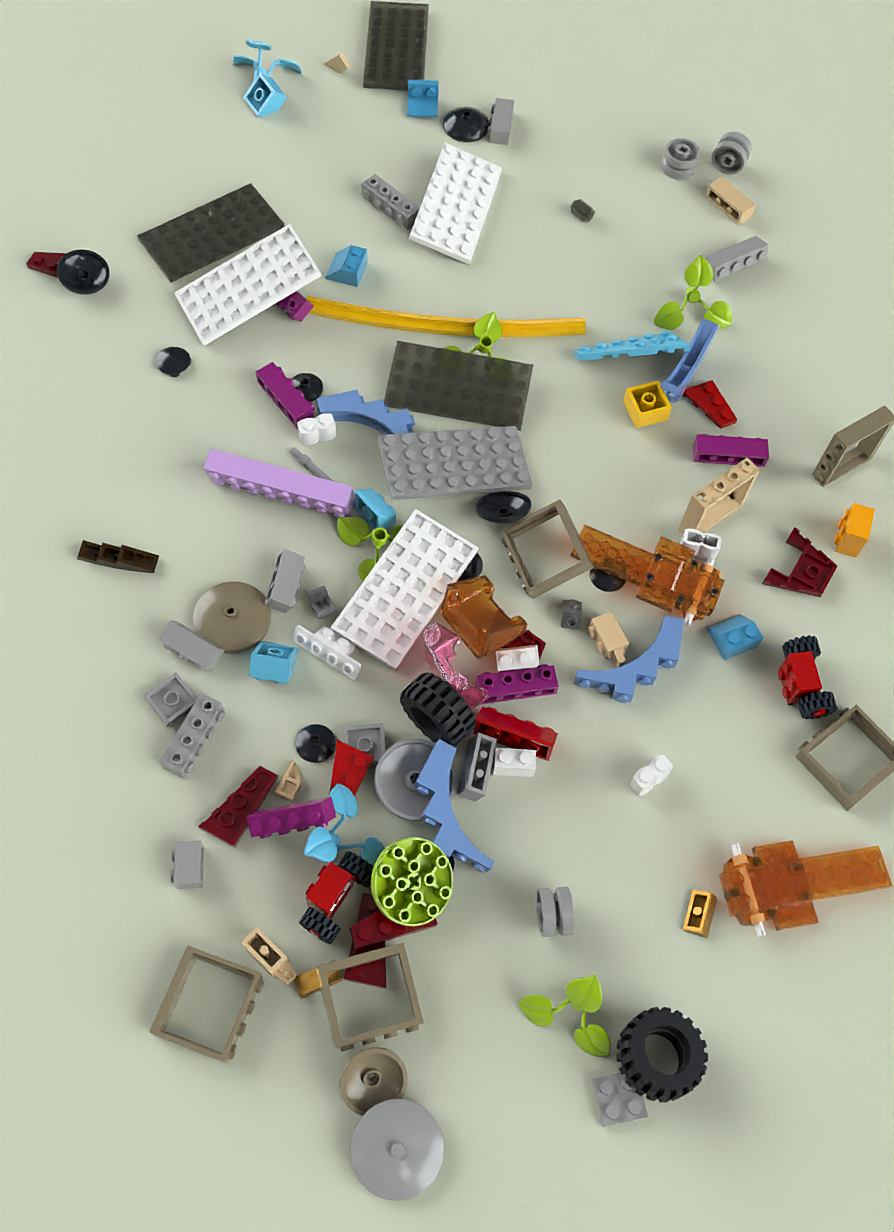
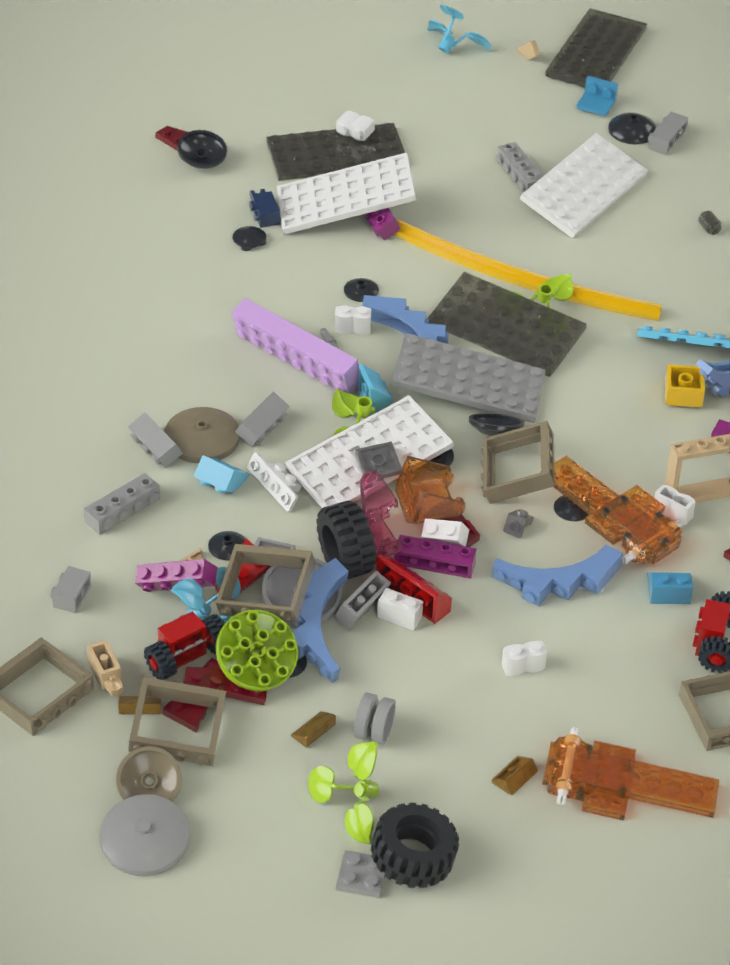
camera: 25 degrees right, 20 degrees down
(118, 557) = (125, 364): dark brown slope -> none
(171, 699) = (116, 473): light grey plate -> none
(173, 321) = (264, 208): none -> dark blue hinge
(219, 199) = (355, 125): none -> white brick
(230, 819) = (122, 573): dark red wing -> none
(264, 95) = (443, 59): medium azure slope -> none
(284, 393) = (336, 283): magenta brick -> none
(321, 602) = (287, 444): flat silver bracket -> none
(348, 265) = (453, 208): dark azure slope -> none
(380, 765) = (271, 557): none -> dark tan window
(421, 597) = (379, 457): none -> flat silver plate
(496, 937) = (314, 728): none -> pearl gold slope
(609, 638) = (543, 547): tan hinge -> none

